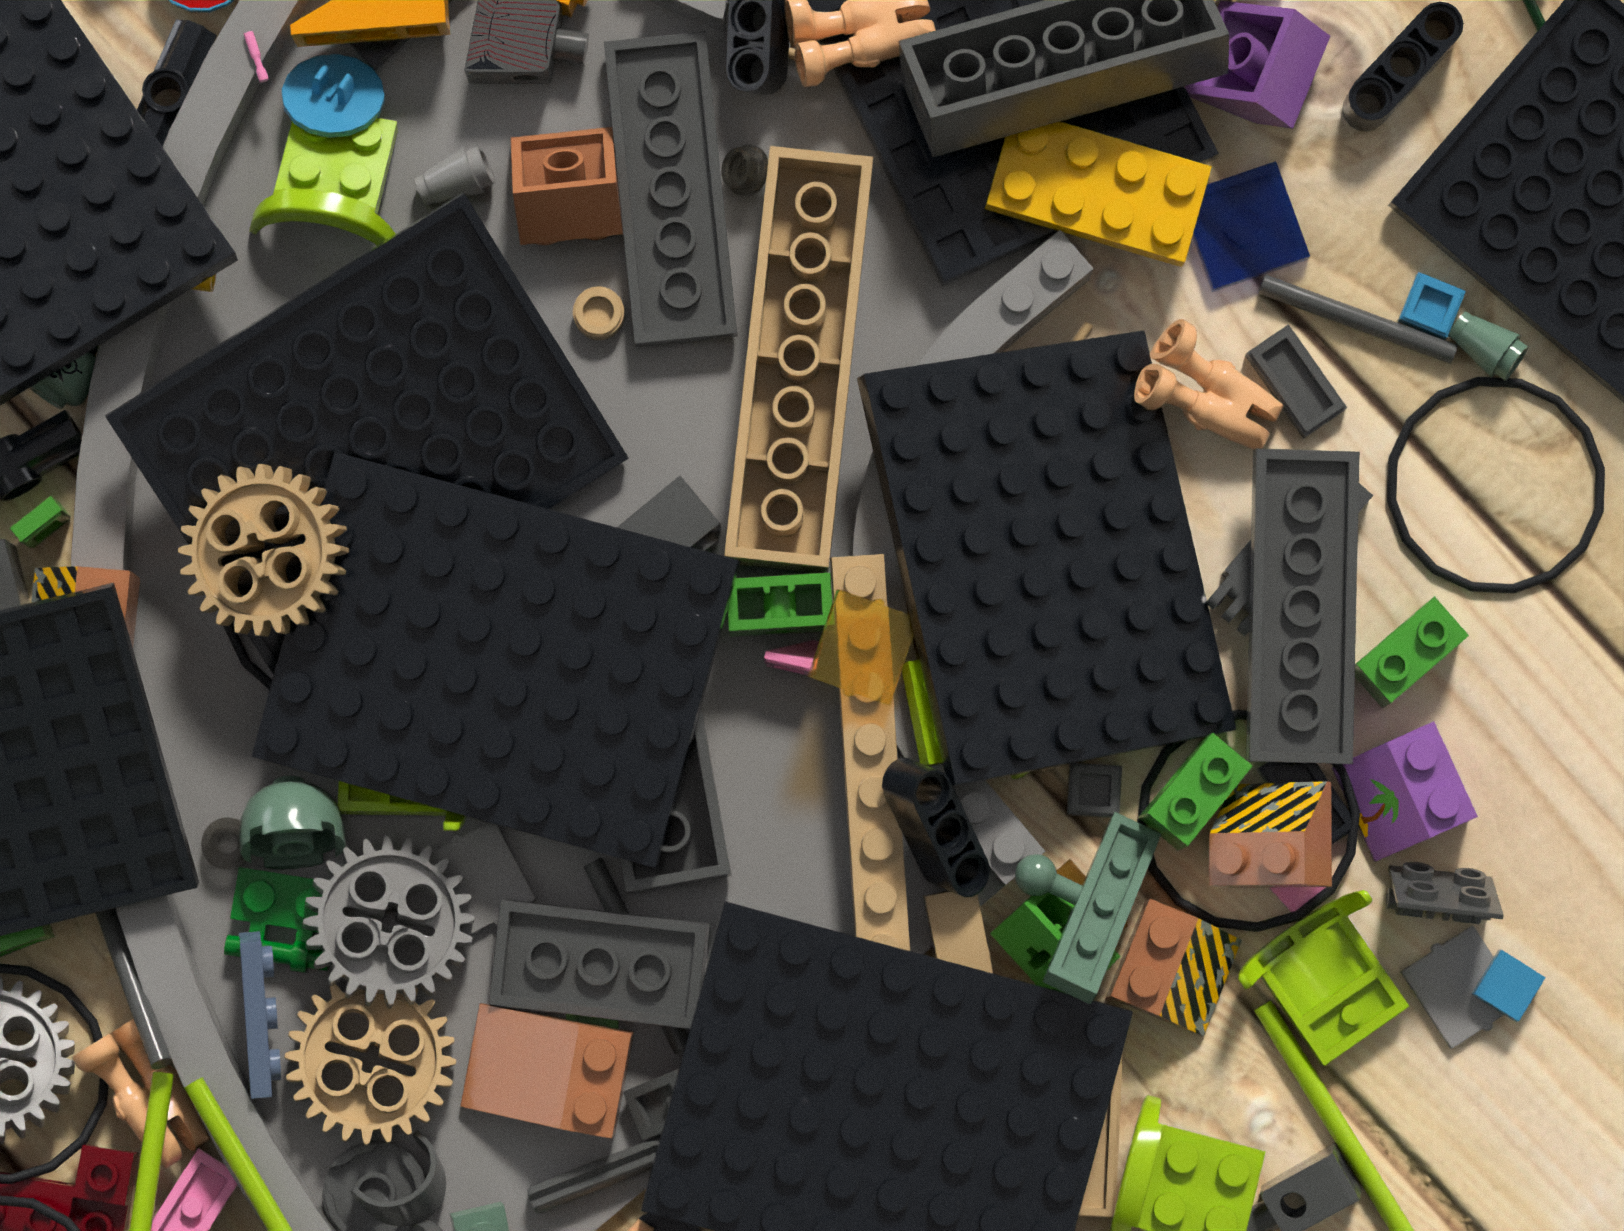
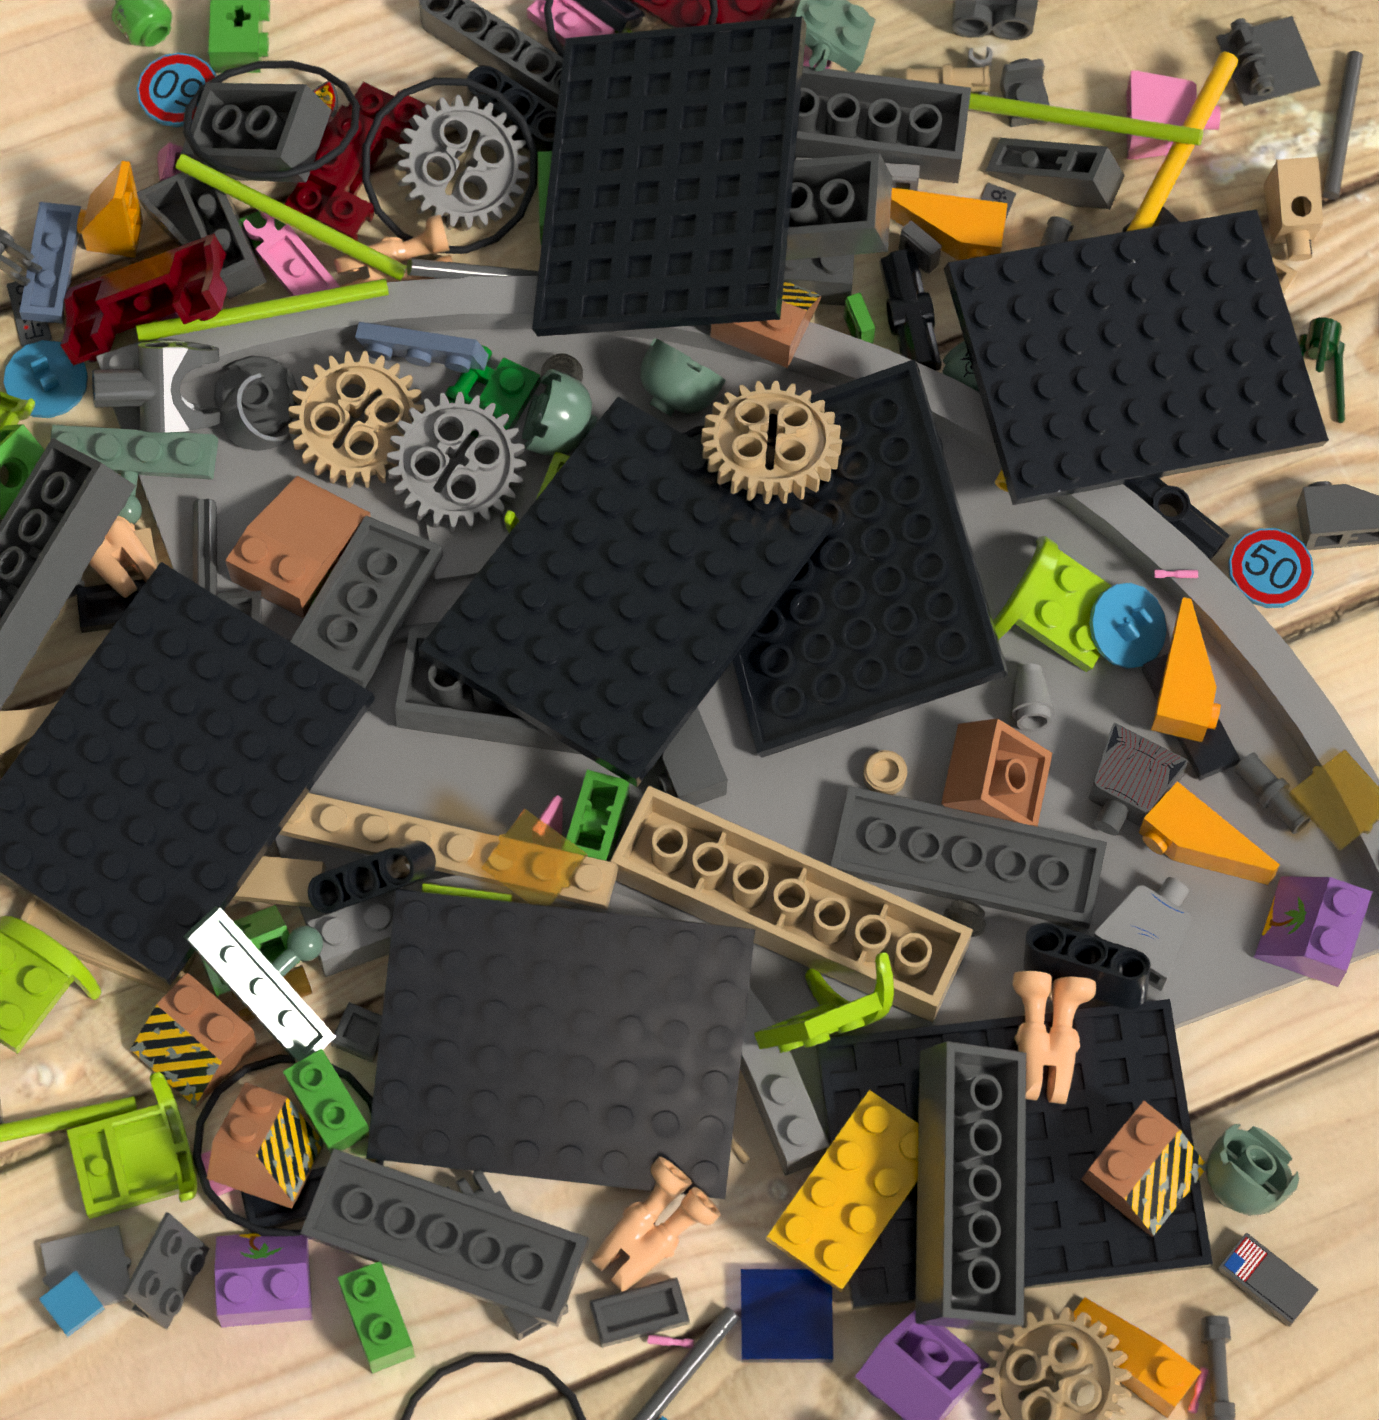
camera: 105 degrees right, 15 degrees down
(197, 699) = (677, 380): none -> sand green cylinder
(925, 273) = (832, 1013): none -> lime piece
(1314, 340) = (668, 1341): none -> bright pink piece

